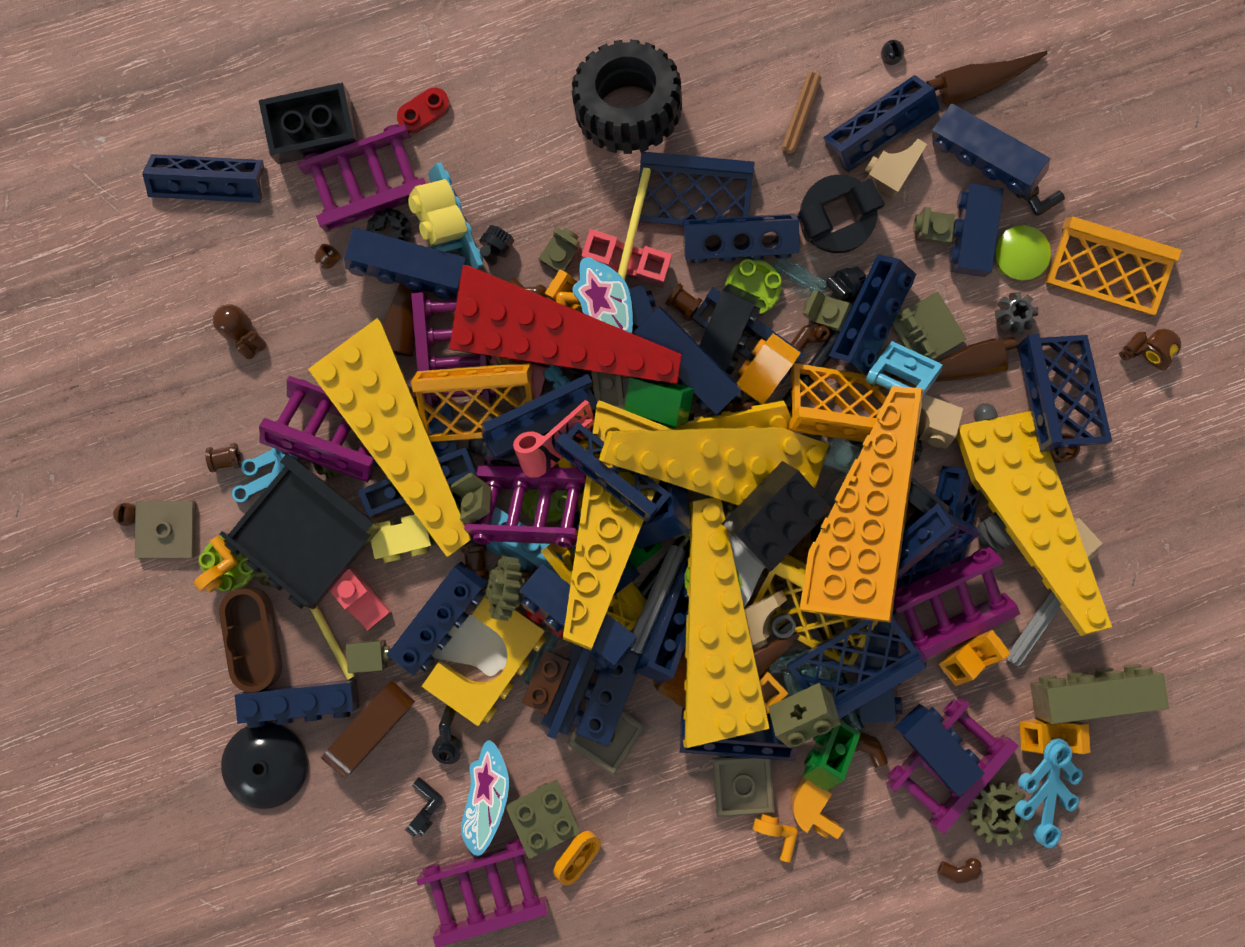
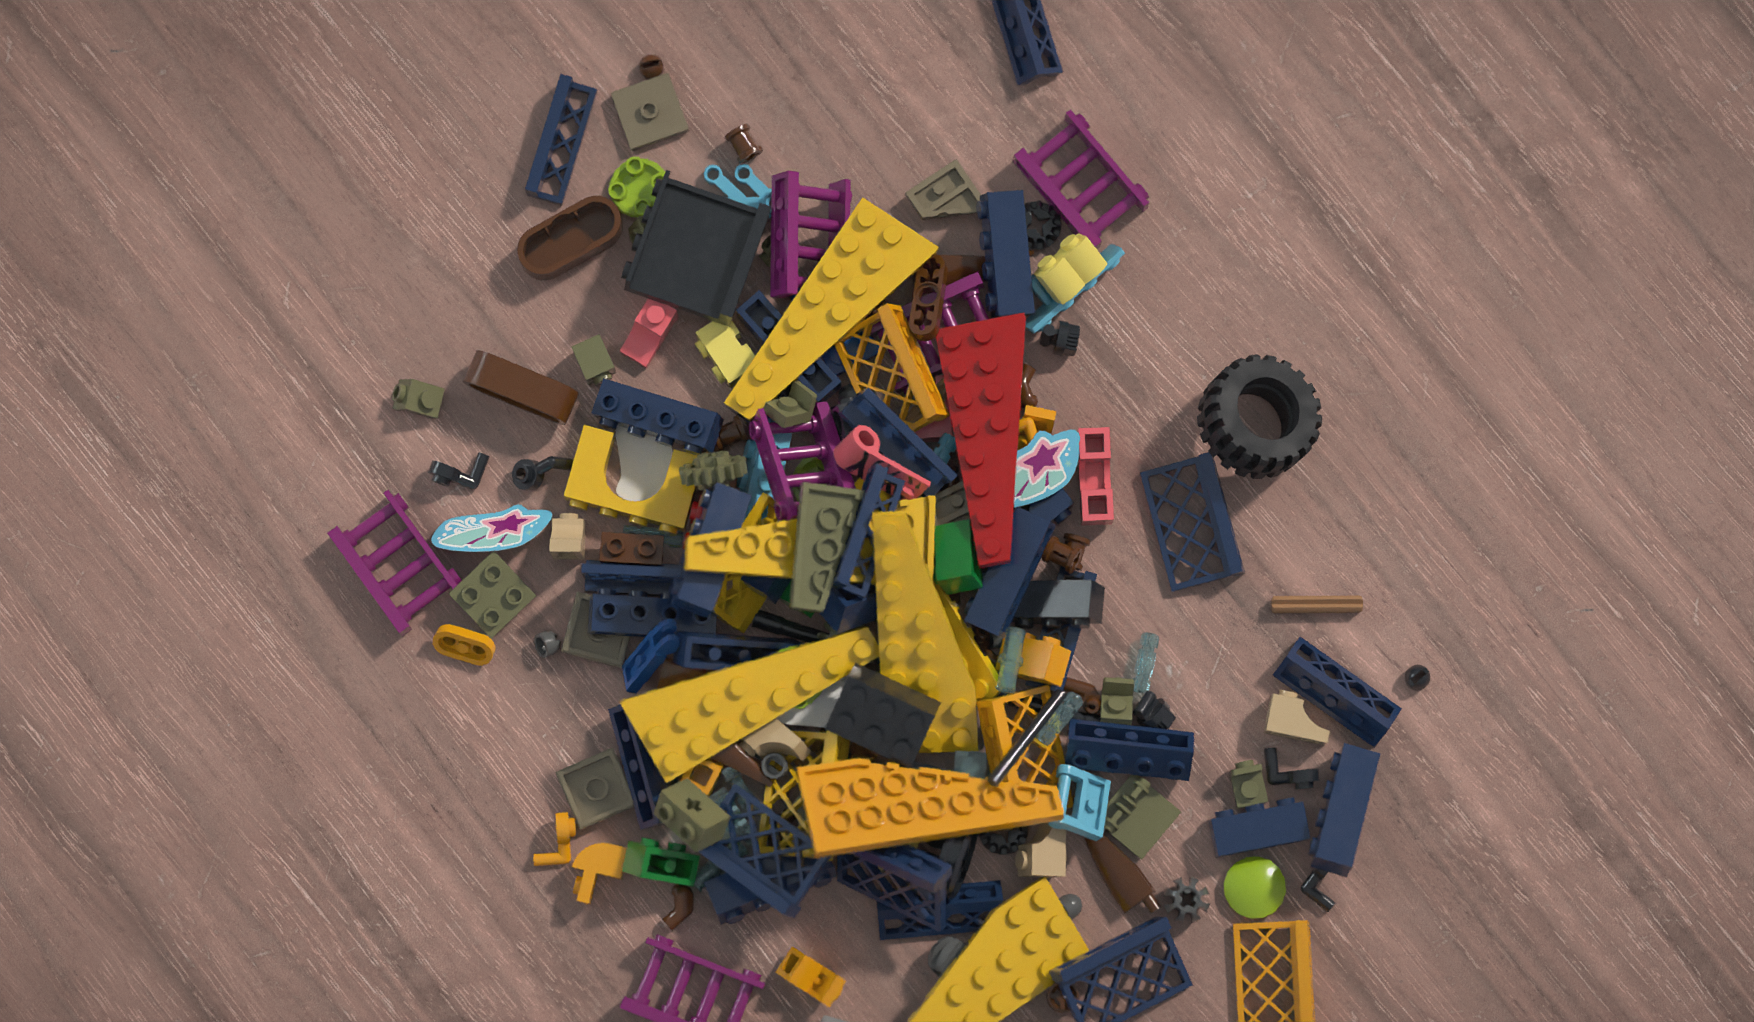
camera: 70 degrees right, 5 degrees down
(155, 626) = (549, 138): none -> dark blue fence
(212, 577) = (617, 176): light orange plate -> none
(236, 327) = (880, 108): reddish brown piece -> none
(283, 763) = (448, 318): black dish -> none
(297, 701) = (527, 313): dark blue brick -> none
(308, 122) = (1115, 106): black brick -> none
(327, 256) = (987, 172): reddish brown hinge -> none
(331, 641) = (595, 319): light yellow axle -> none
(332, 299) = (945, 194): none -> dark tan wing
(344, 822) = (417, 397): none -> olive bracket
(425, 112) = (1172, 217): red plate -> none
(431, 343) = (933, 309): none -> reddish brown beam
(515, 734) = (567, 537): none -> tan arch
(560, 250) = (1080, 407): olive bracket -> none
(596, 510) = (821, 536): none -> olive wing
(601, 784) = (546, 643): none -> dark grey hinge
(634, 222) = (1134, 470): light yellow axle -> none
(646, 700) = (650, 654): none -> blue hinge
(657, 597) = (756, 629): light grey axle -> none
(686, 310) = (1052, 551): none -> reddish brown bush
(727, 228) = (1175, 592): dark blue brick -> none
(758, 279) = (1121, 620): lime dish -> none
(764, 387) = (1010, 660): none -> clear light blue pin
(826, 364) = (1060, 718): none -> clear light blue axle
(839, 398) = (1026, 738): none -> black bar
(863, 201) = (1243, 658): black piece -> none
(940, 749) = (706, 969): dark blue brick -> none
(945, 178) = (1302, 778): none -> black plate
(973, 618) = (850, 964): magenta fence -> none
(976, 79) = (1417, 772): reddish brown piece -> none

